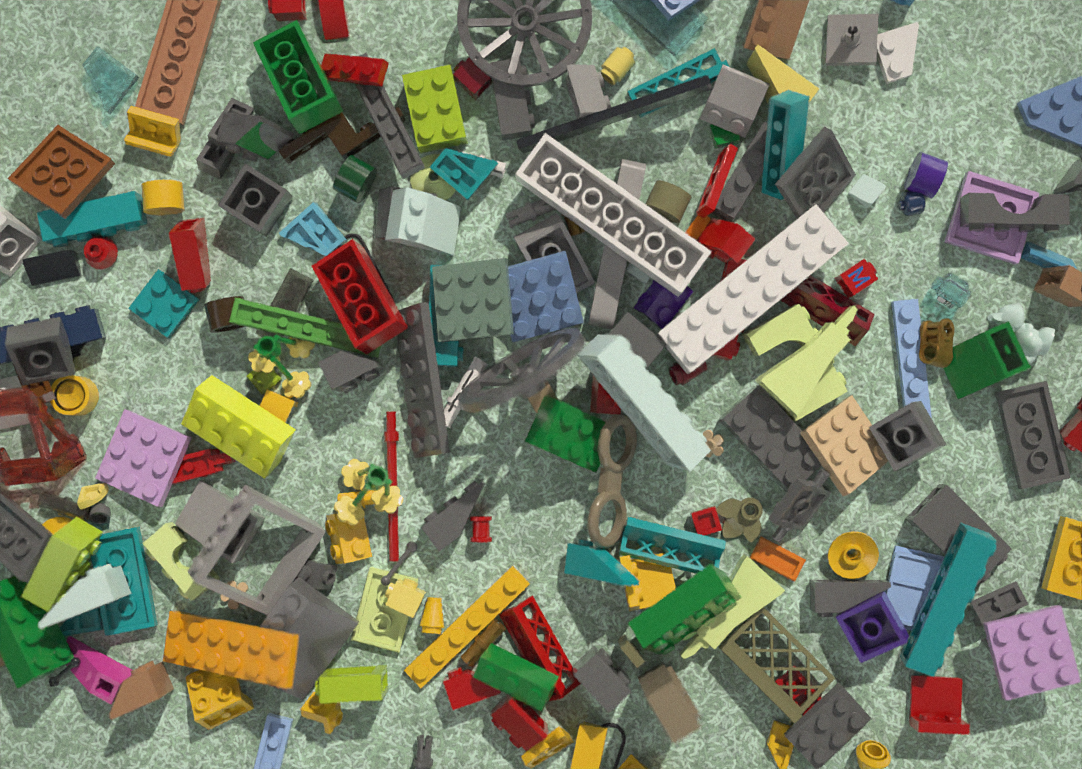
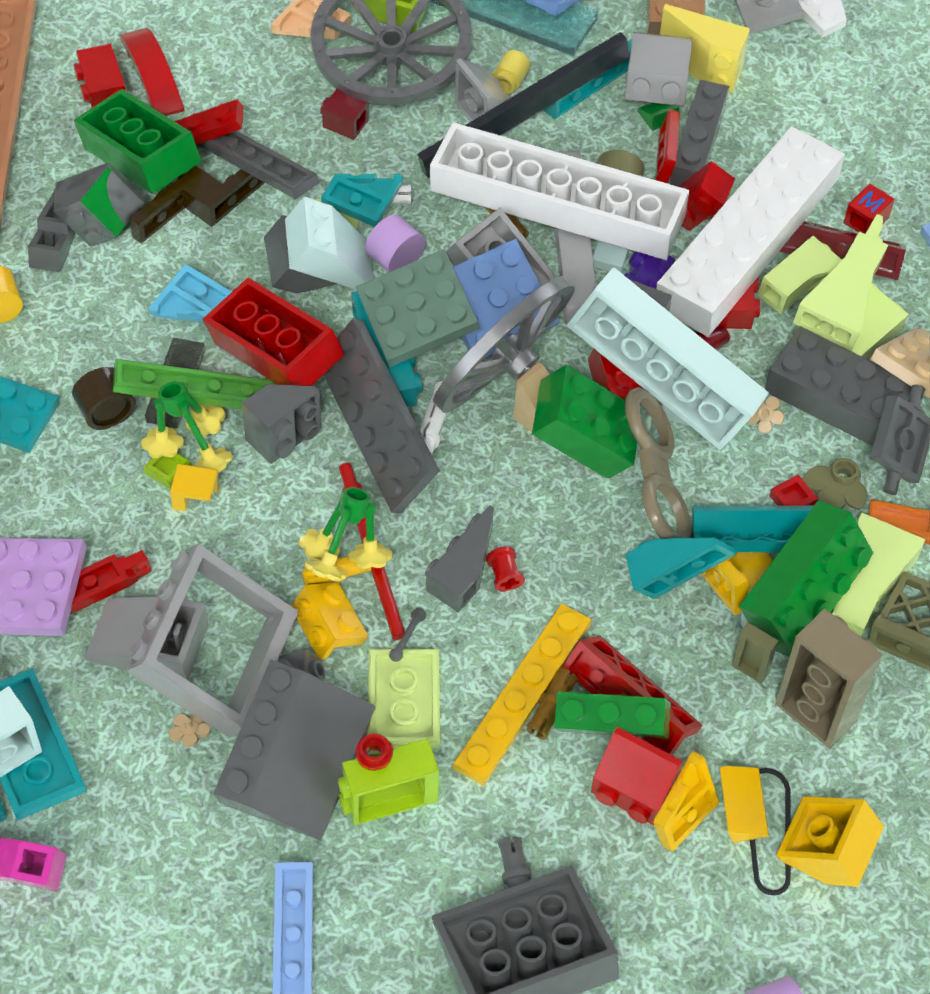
camera: 15 degrees left, 30 degrees down
(145, 685) = (86, 862): medium nougat slope -> none
(165, 548) = (126, 716): yellowish green arch -> none
(191, 254) = (42, 346): red slope -> none
(216, 698) = (198, 857): yellow bracket -> none
(231, 649) = (205, 769): light orange plate -> none
(237, 426) = (147, 509): neon yellow brick -> none
(255, 200) = (112, 275): dark grey brick -> none
(326, 713) = (348, 831): yellow bracket -> none
(334, 685) = (370, 743): none -> red plate
(354, 179) = (231, 230): dark green piece -> none
(405, 596) = (429, 662): light yellow brick -> none
(432, 616) = (473, 689): yellow cone -> none
(434, 109) = (311, 140): lime brick -> none
(466, 690) = (551, 760): red slope -> none
(476, 224) = (394, 243): none -> lavender piece
(512, 105) = (400, 131): dark grey brick -> none
(528, 212) = (455, 227): light grey pin -> none
(601, 679) = (728, 695): dark grey brick -> none
(784, 137) = (732, 86): teal brick -> none
(816, 175) = (776, 105): dark grey plate -> none
(866, 190) = (844, 131): light aqua slope -> none
(911, 203) = (901, 129): dark blue piece -> none
(926, 175) = (904, 98): dark purple piece -> none

